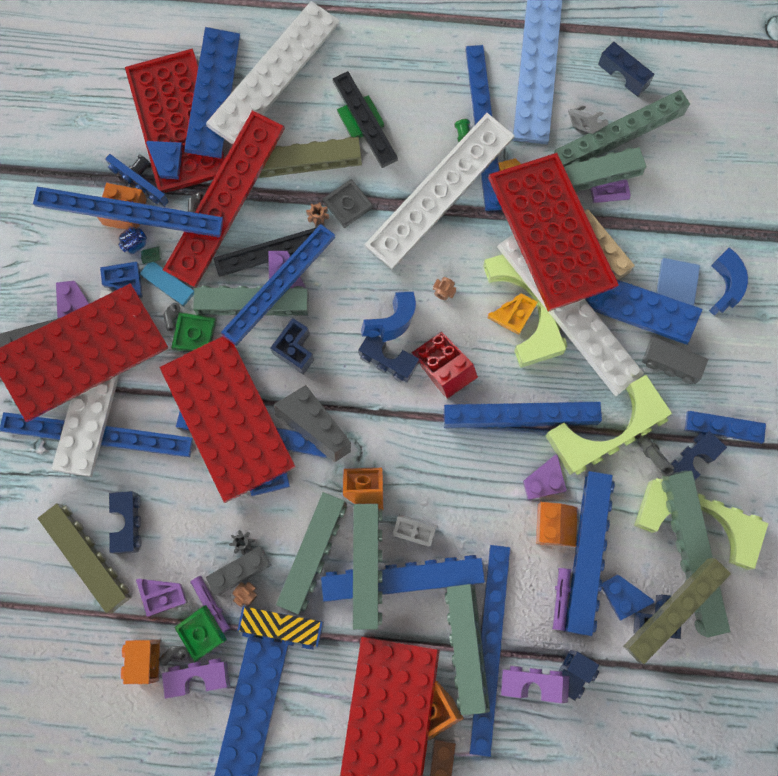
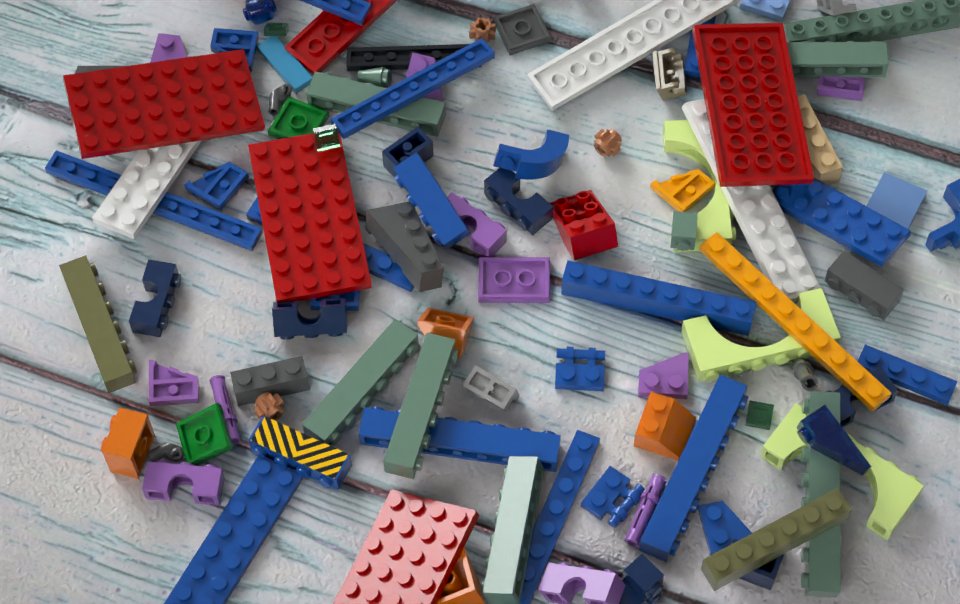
camera: 15 degrees right, 15 degrees down
(145, 407) = (218, 185): none -> blue wing
(221, 348) = (326, 137): none -> tile
(236, 544) = (283, 350): dark grey gear -> none
(241, 515) = (290, 323): none -> dark blue arch
(244, 277) = (378, 76): none -> sand green cone
(322, 383) = (431, 200): none -> blue brick
(343, 381) = (488, 235): none -> medium lavender arch
(404, 426) = (514, 280): none -> medium lavender tile
(475, 215) = (669, 74): none -> dark tan hinge
(479, 496) = (580, 376): none -> blue plate
(527, 591) = (607, 491): none -> blue plate
(529, 356) = (683, 230): none -> sand green brick
(625, 492) = (759, 415): none -> clear green tile
(634, 410) = (795, 322): none -> light orange plate
(691, 511) = (830, 439): none -> clear blue slope

